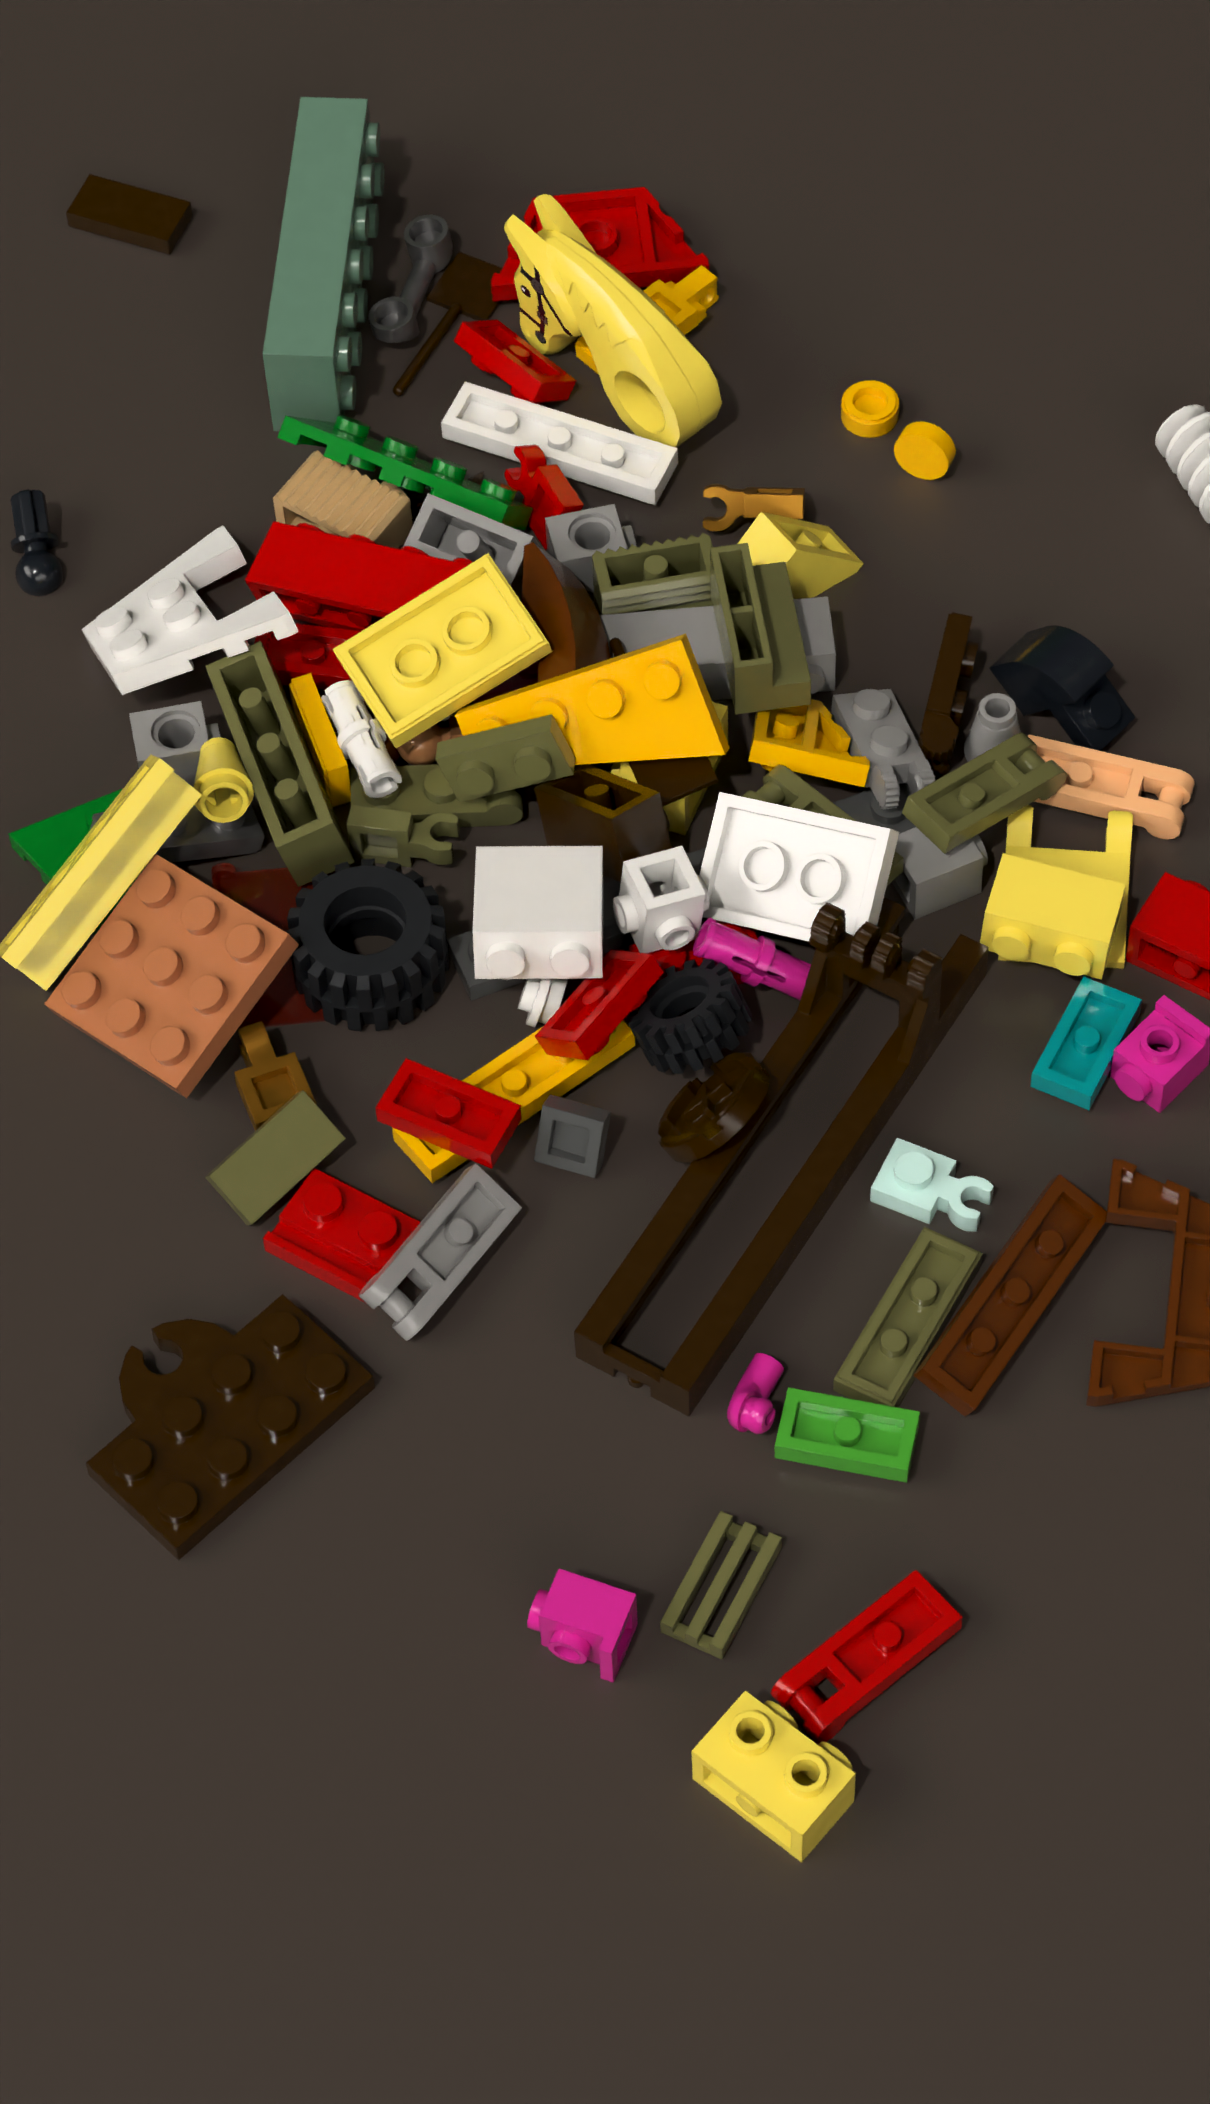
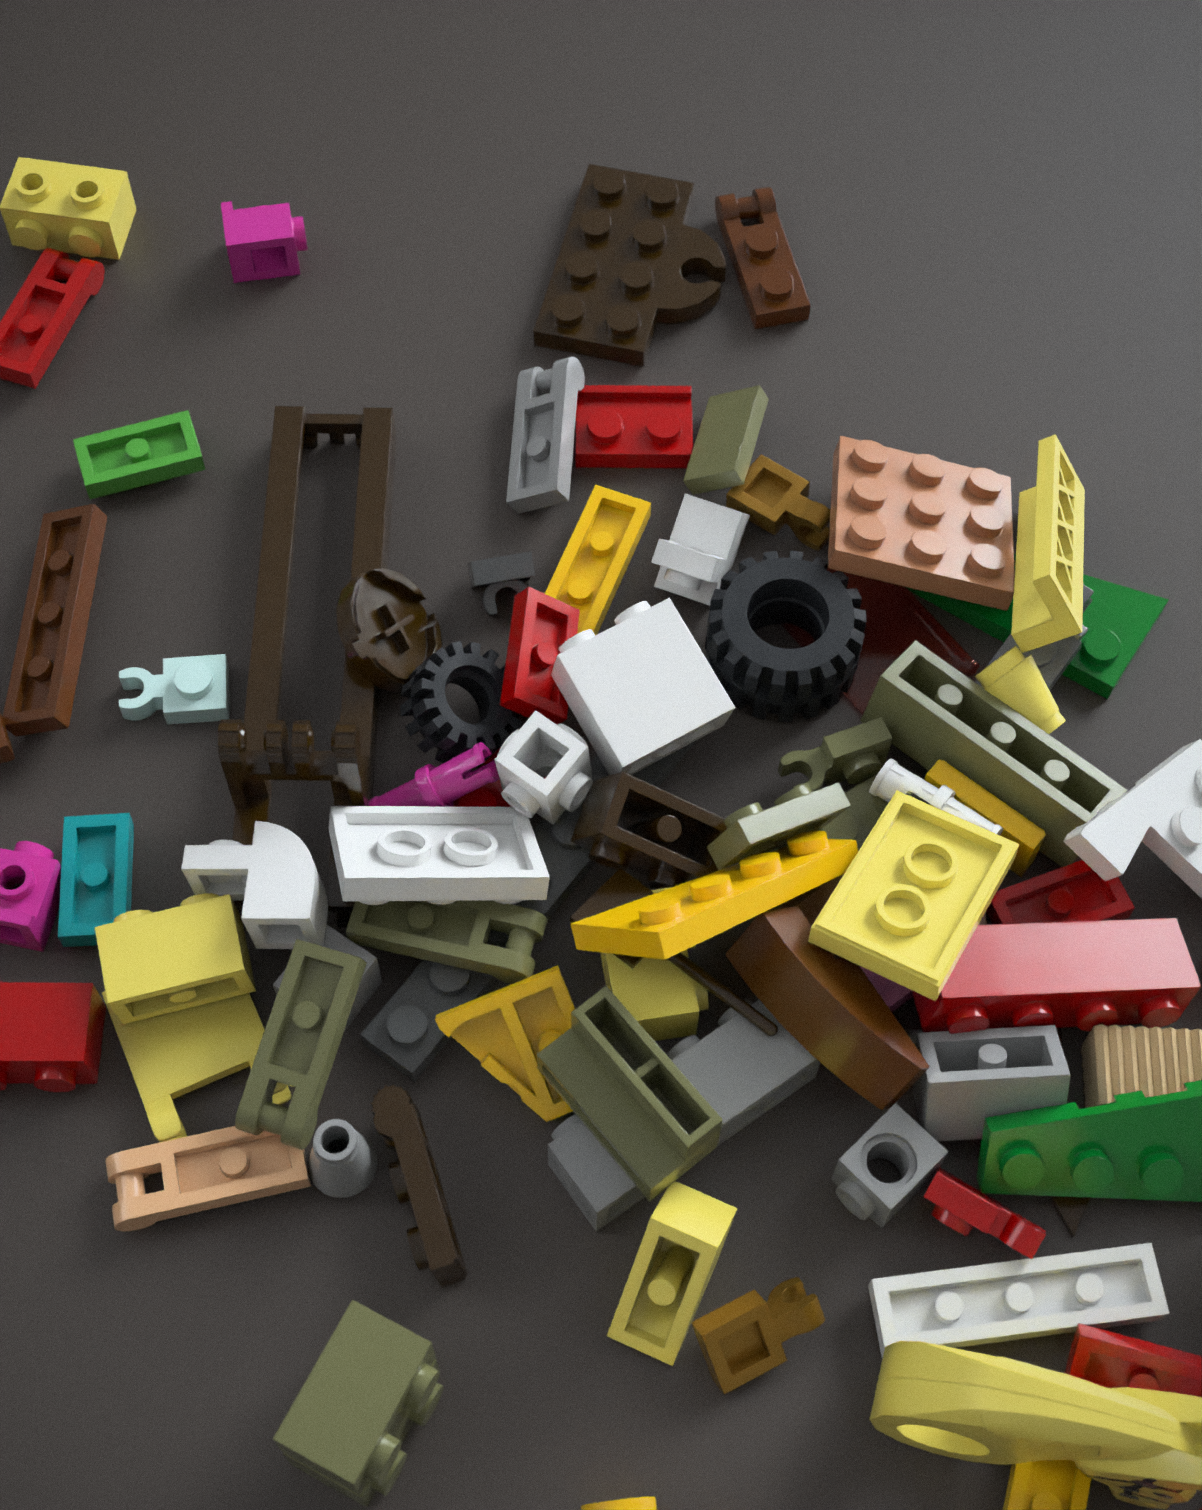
camera: 145 degrees right, 5 degrees up
(81, 1354) = (762, 259): none -> reddish brown plate
(173, 736) = (1114, 723): light grey brick -> none
(364, 1061) = (699, 549): none -> white brick
(448, 1113) = (605, 511): red plate -> none
(653, 576) = (783, 1140): olive brick -> none
(744, 1538) = (181, 288): olive tile -> none
(750, 1403) = (235, 449): dark pink arm -> none
(886, 739) = (449, 1087): light grey hinge -> none
(908, 1320) = (139, 575): olive tile -> none
(940, 910) = (274, 880): none -> white brick
(1067, 675) = (302, 1253): black brick -> none
(1071, 559) = (361, 1405): none -> olive piece

